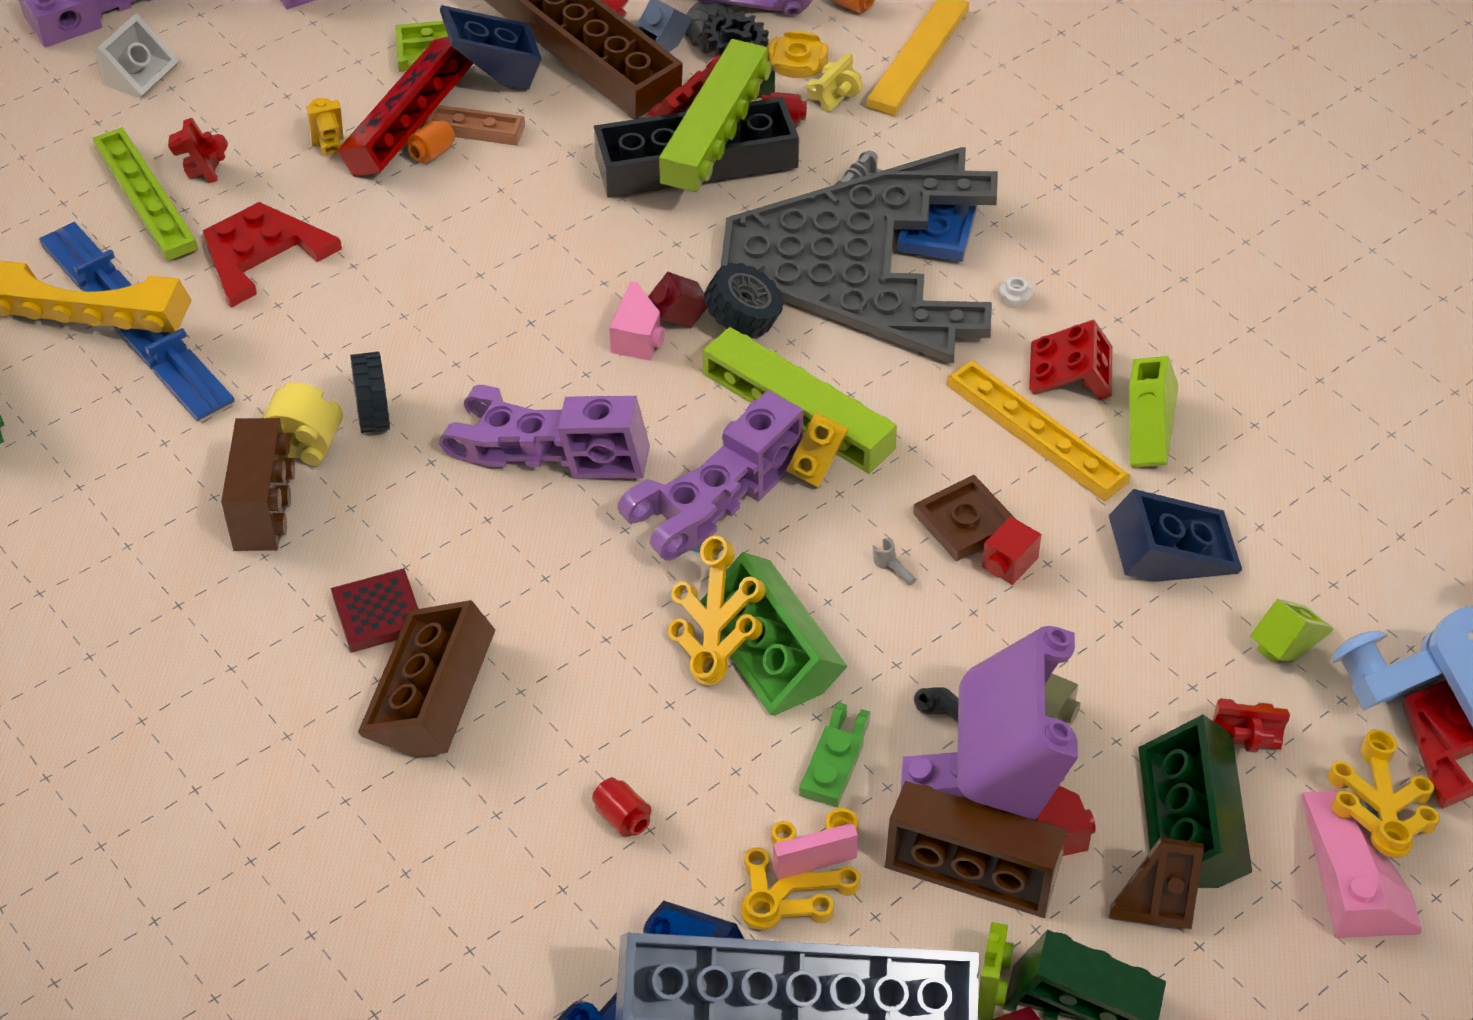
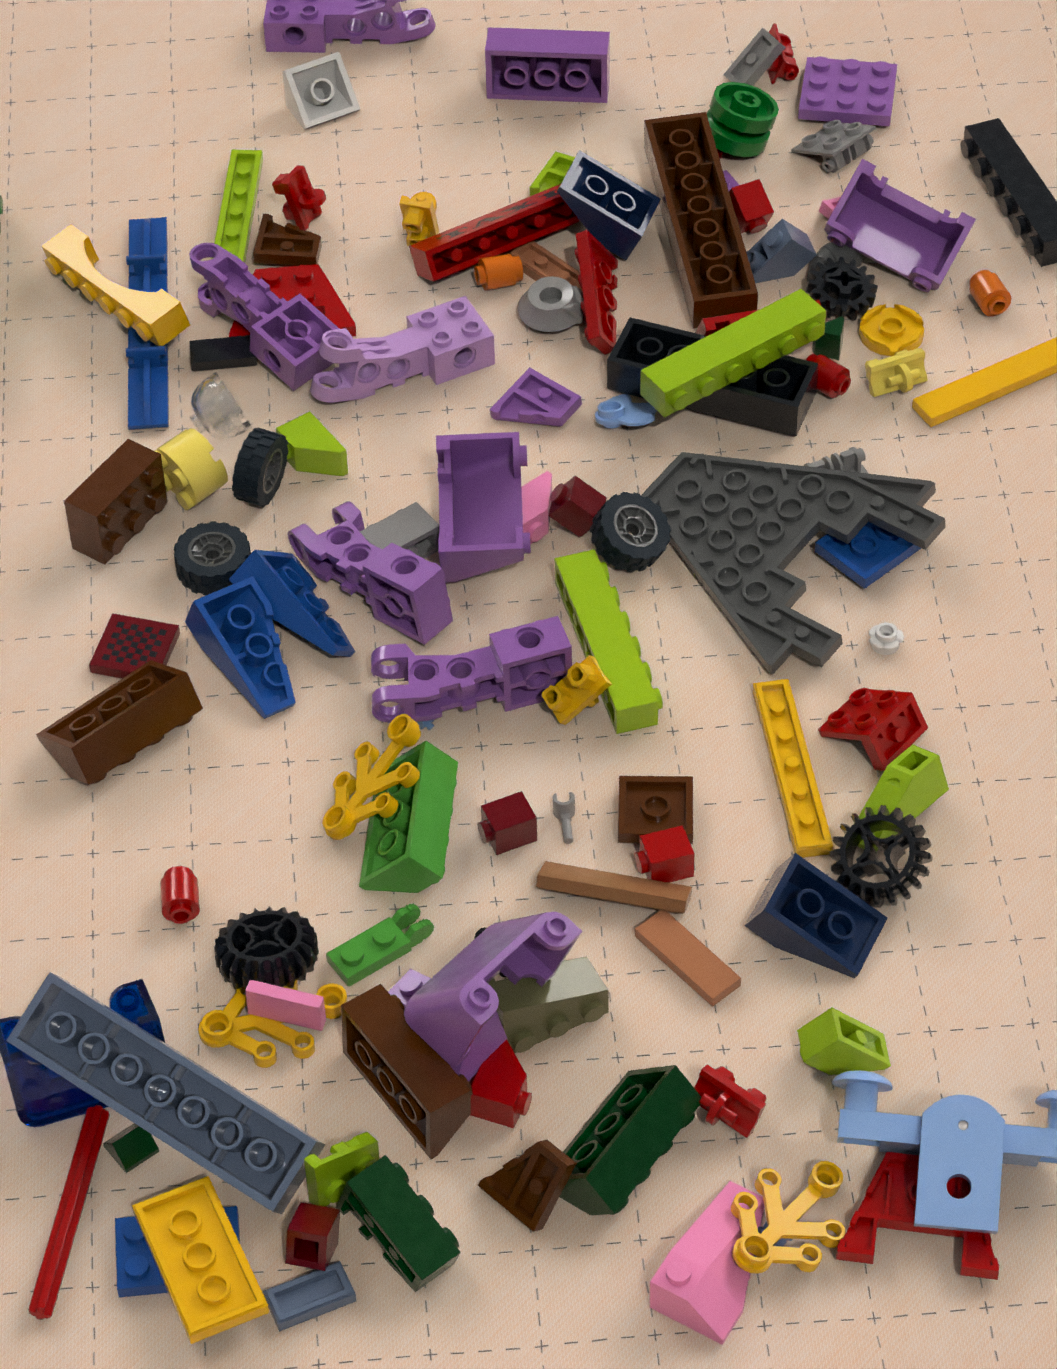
camera: 35 degrees right, 0 degrees up
(213, 198) = (285, 244): none -> reddish brown wing
(232, 314) = (221, 353): none -> black tile
(280, 359) = (217, 410): none -> clear cylinder
(292, 269) = (281, 331): none -> medium lavender brick
(384, 494) = (210, 556): none -> black wheel
(401, 354) = (313, 447): none -> lime slope
(429, 220) = (437, 343): none -> lavender brick
(473, 492) = (293, 599): none -> blue wedge
(476, 552) = (241, 640): none -> blue wedge
(503, 148) = (551, 305): none -> light grey piece
(544, 131) = (597, 286): none -> red wing
(547, 386) = (408, 528): none -> light grey brick
(559, 232) = (536, 401): none -> medium lavender wing
(601, 332) = (480, 503): none -> medium lavender windscreen
(635, 212) = (622, 411): none -> light blue plate
(750, 811) = (266, 948): none -> black gear
(856, 590) = (508, 823): none -> dark red brick
(991, 599) = (614, 887): none -> medium nougat tile
(1102, 625) = (688, 957): none -> nougat tile
(1198, 465) = (893, 848): none -> black gear

